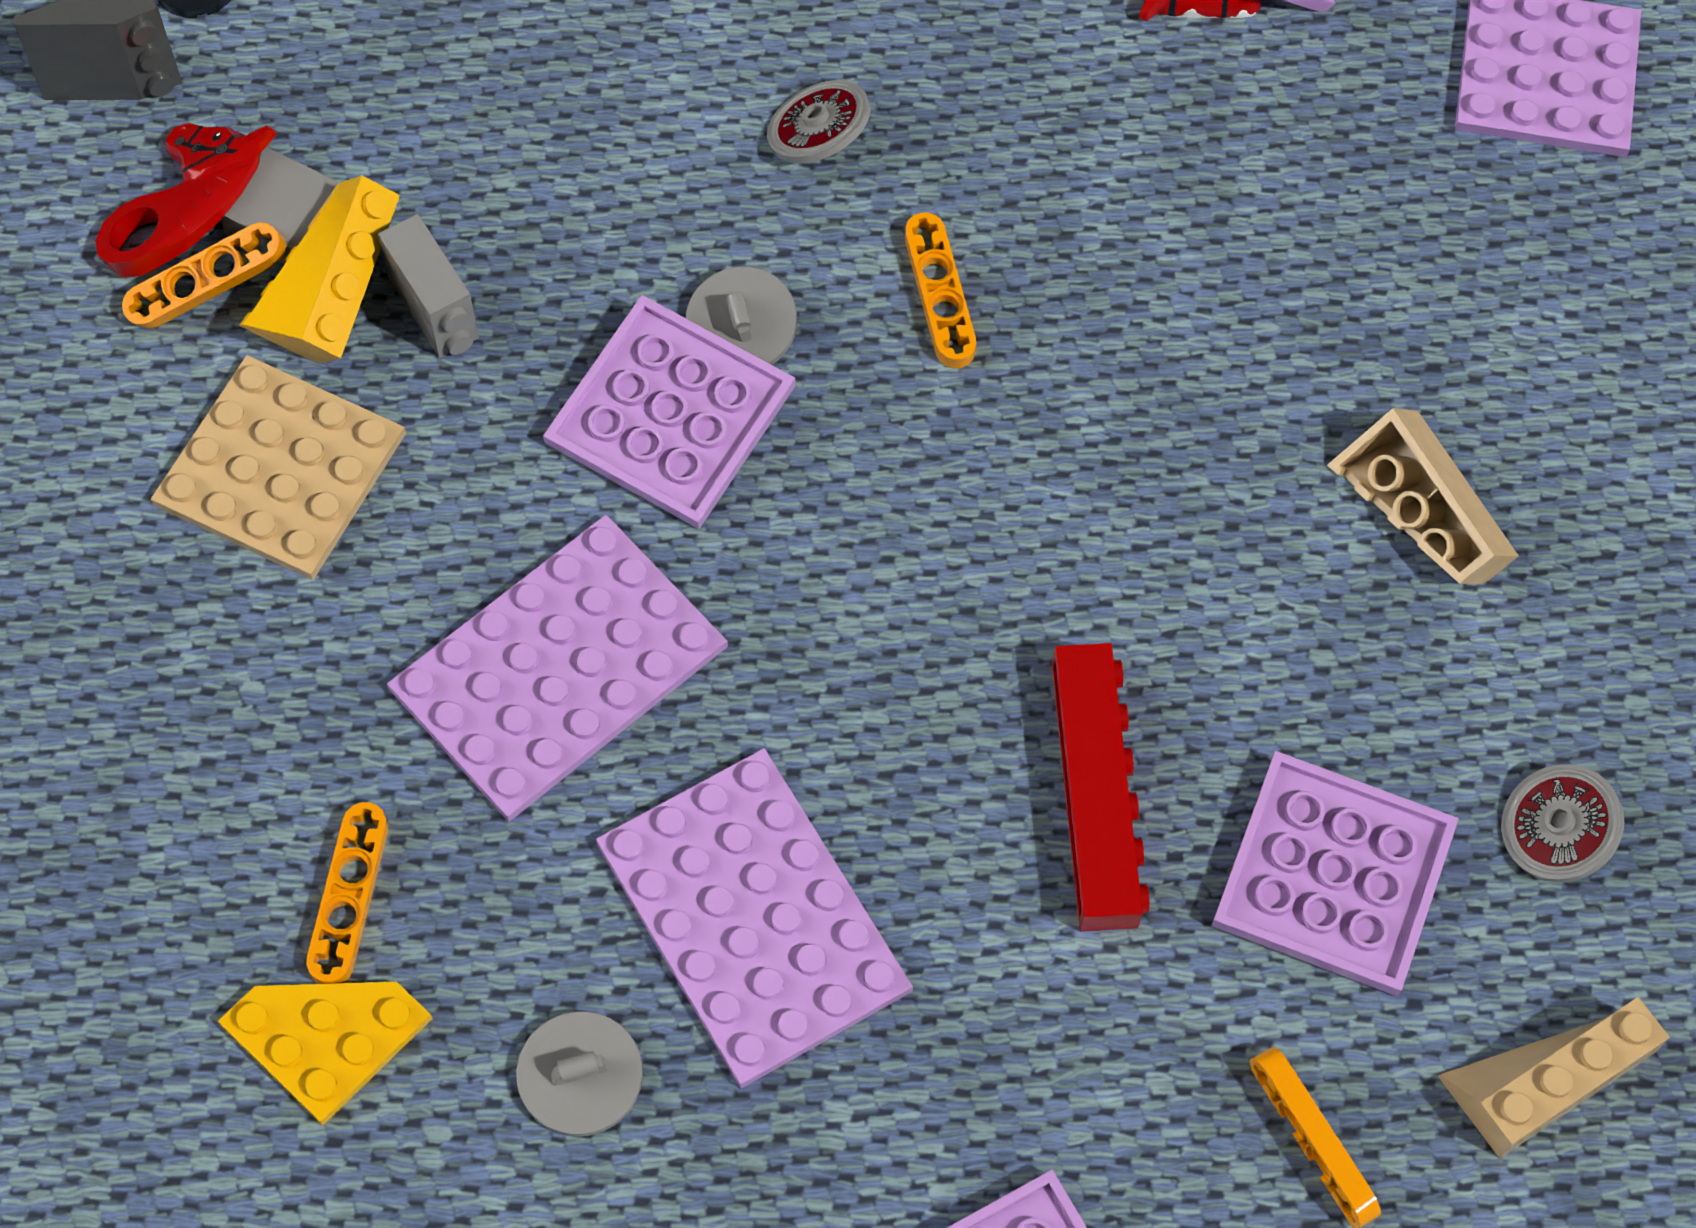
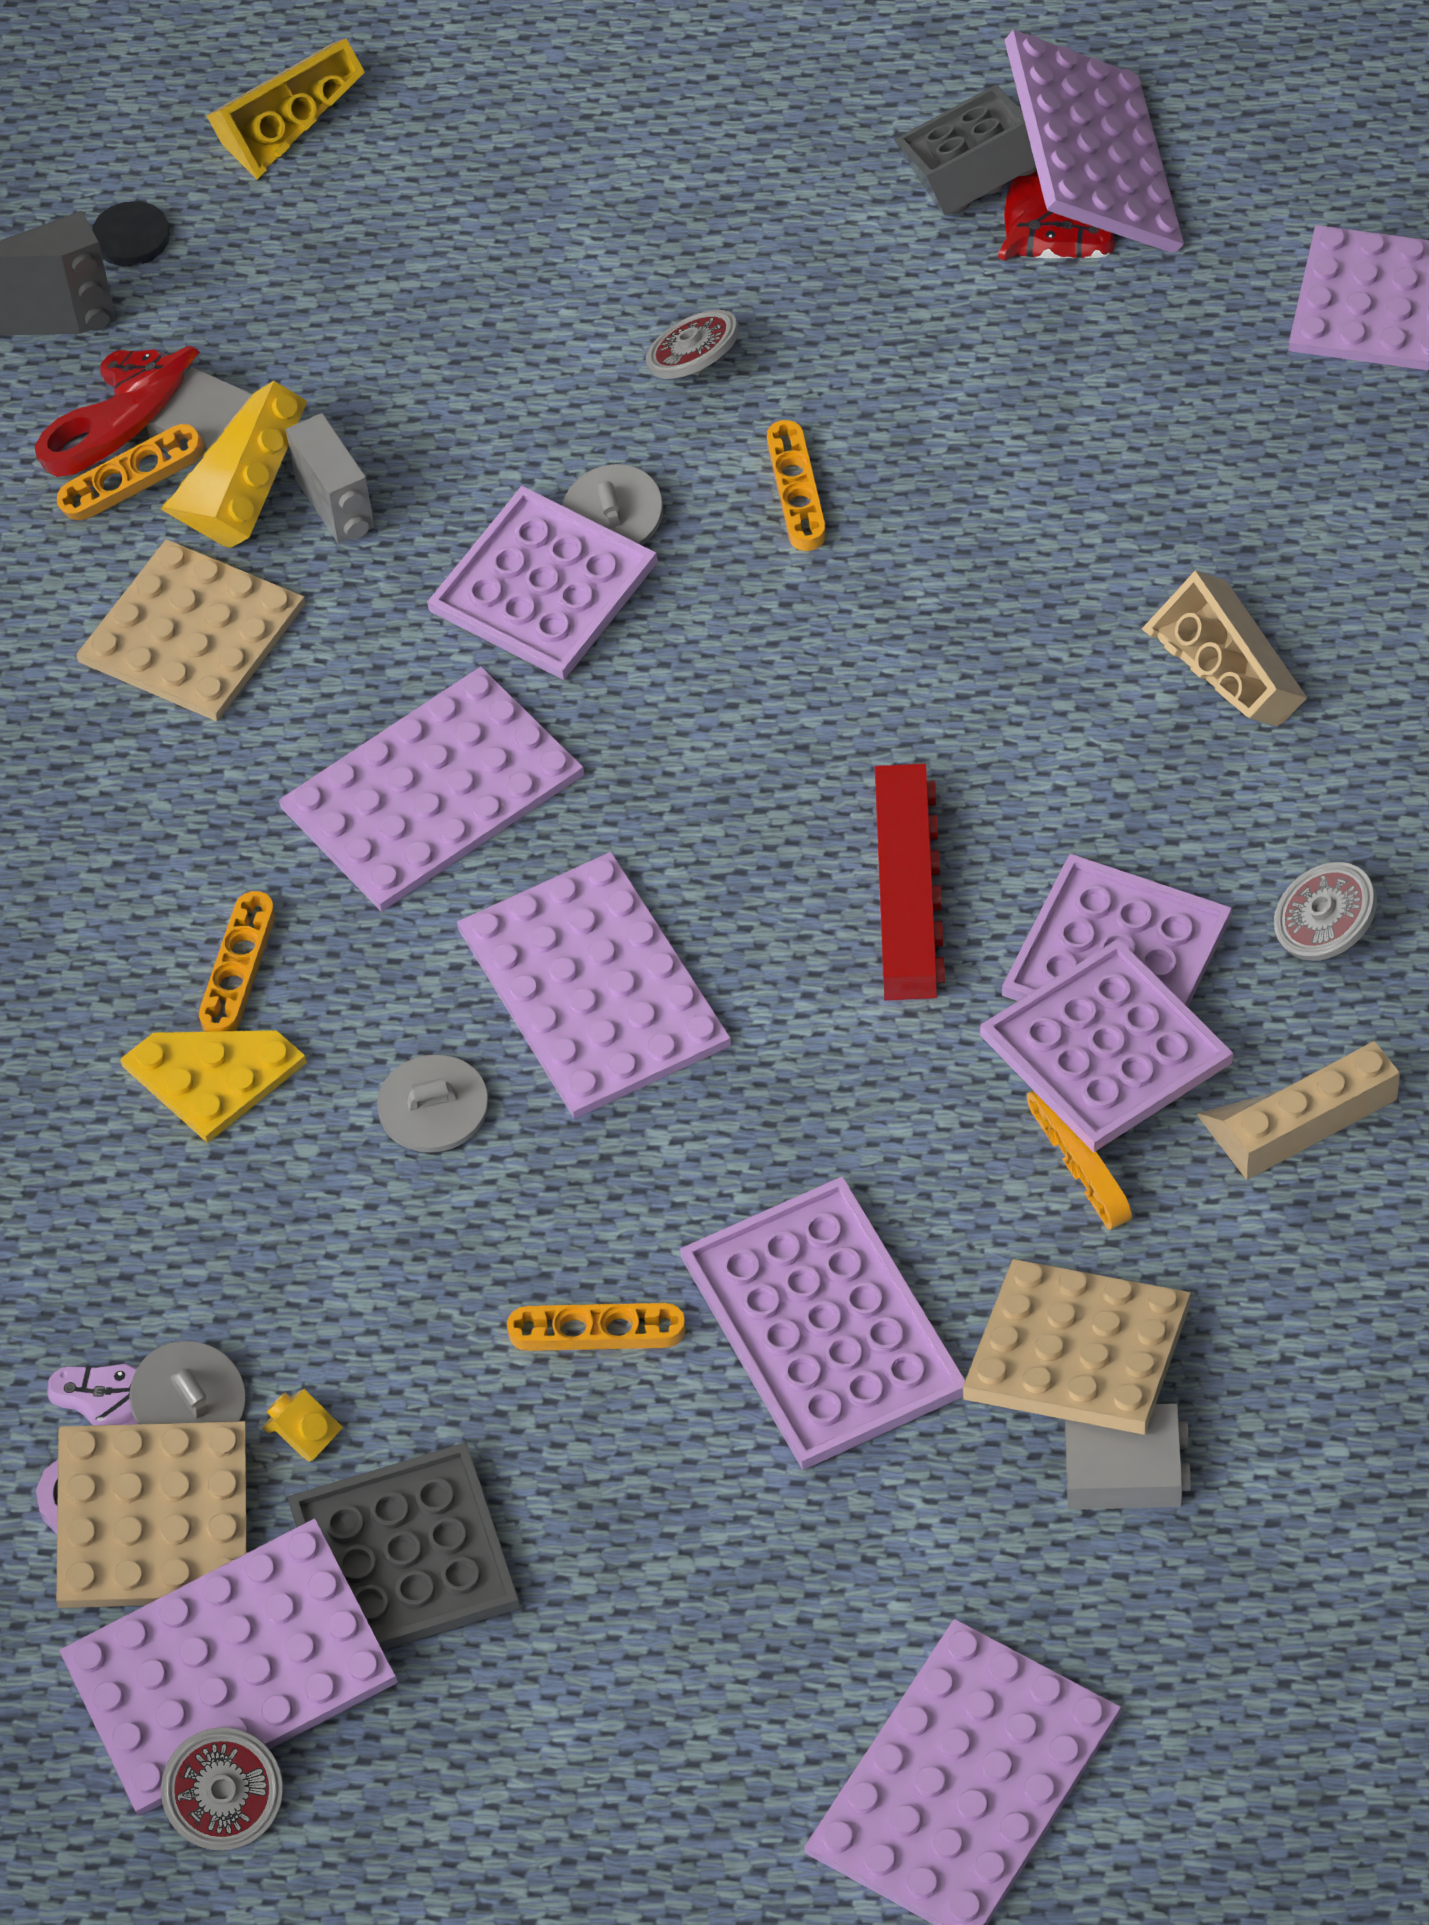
camera: 10 degrees right, 10 degrees down
(1340, 1004) = (1106, 1044): none -> lavender plate

